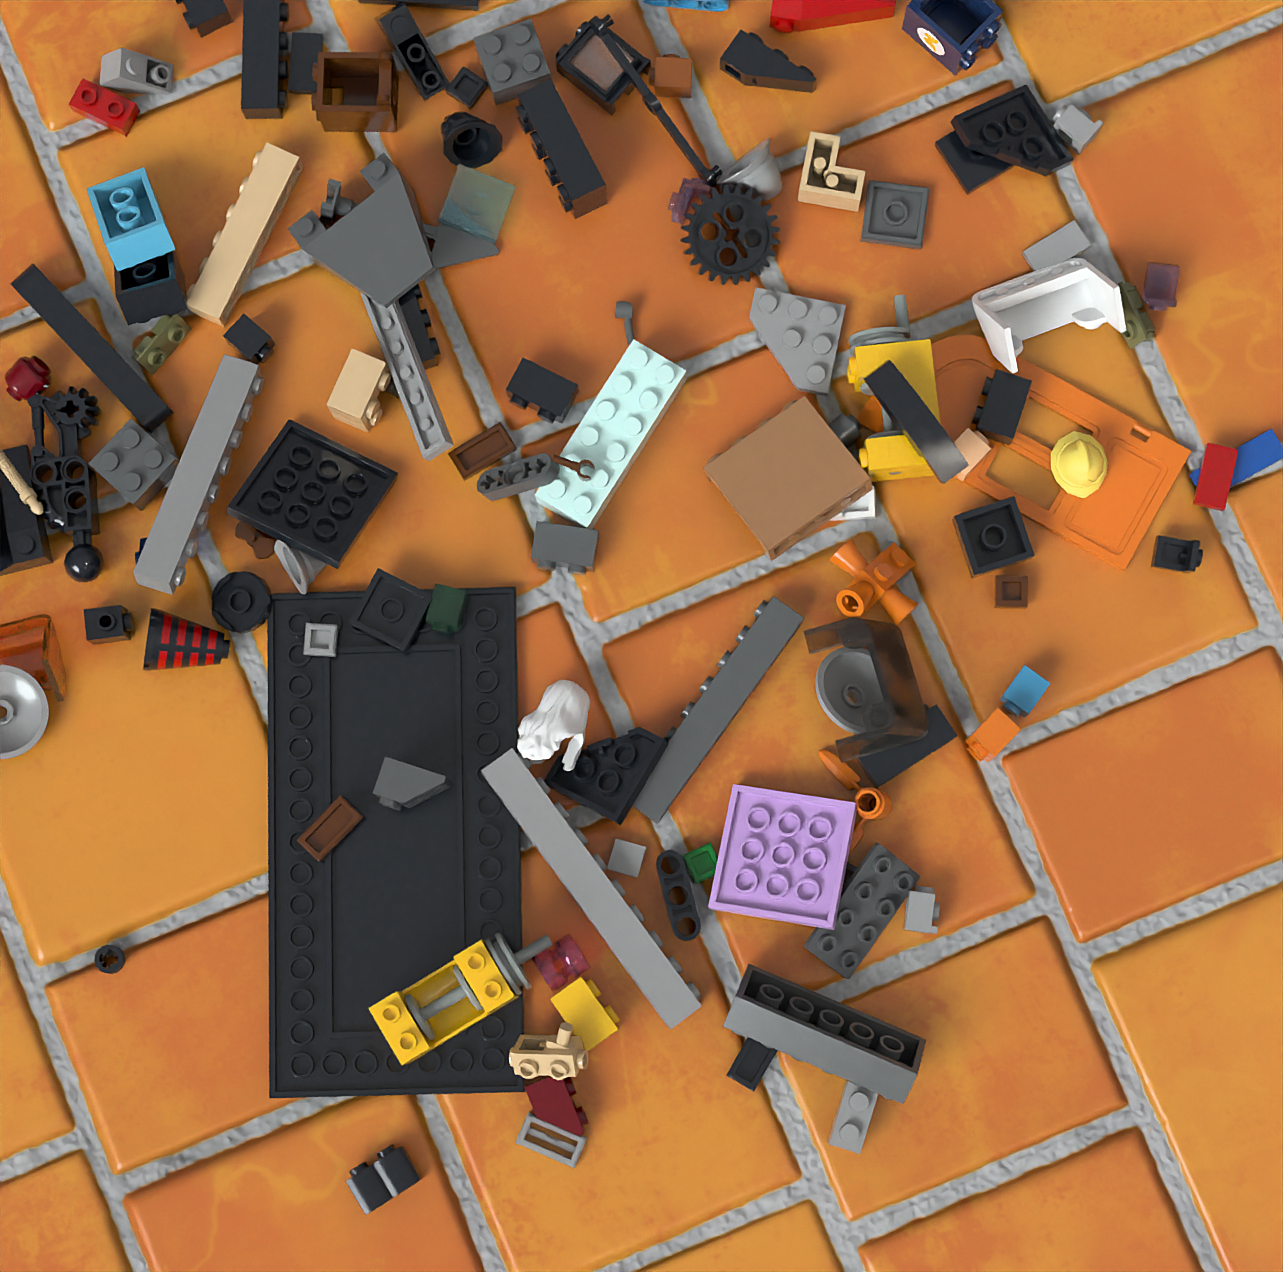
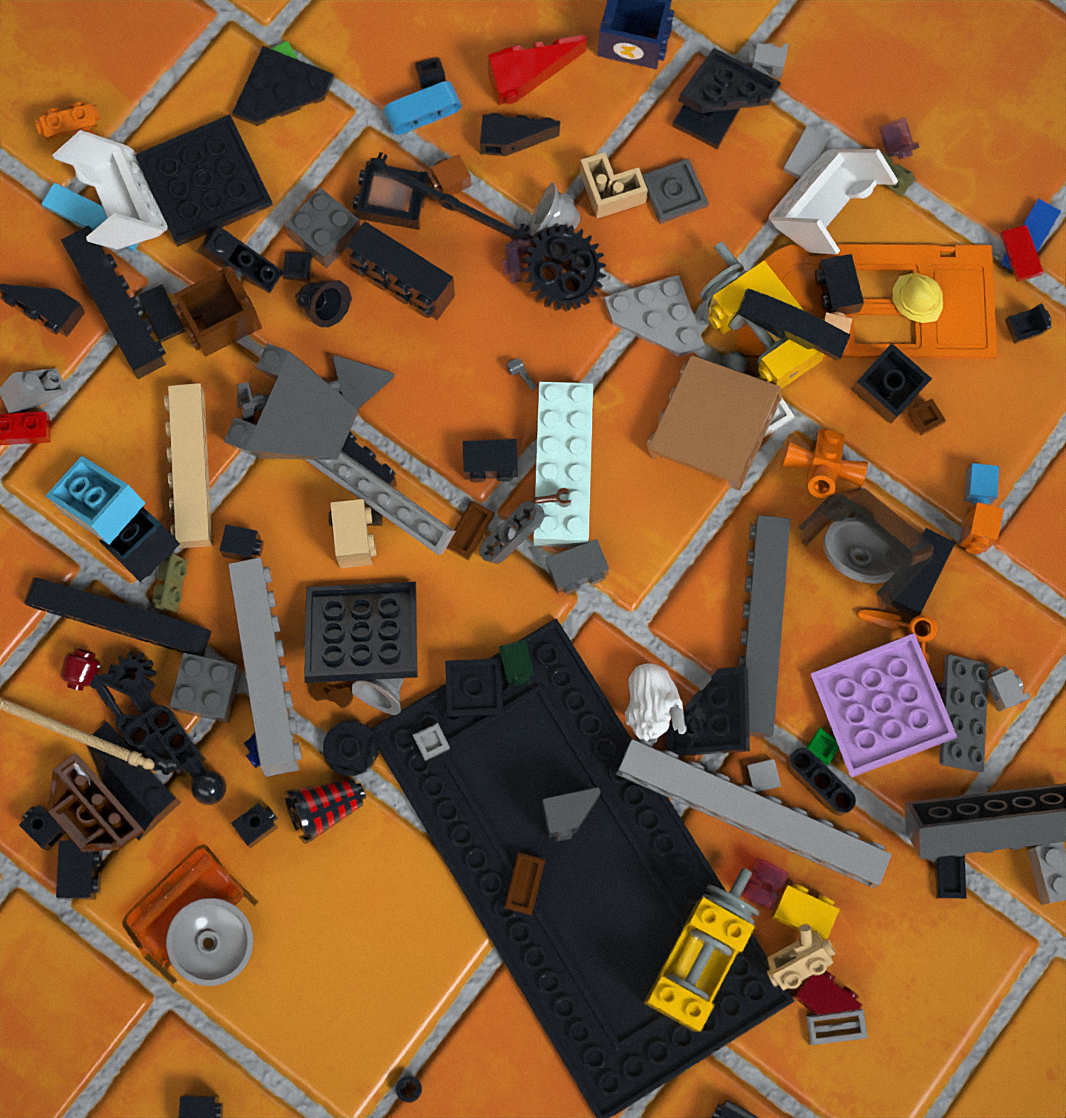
camera: 40 degrees left, 5 degrees down
(476, 203) = (357, 347): clear light blue tile -> none

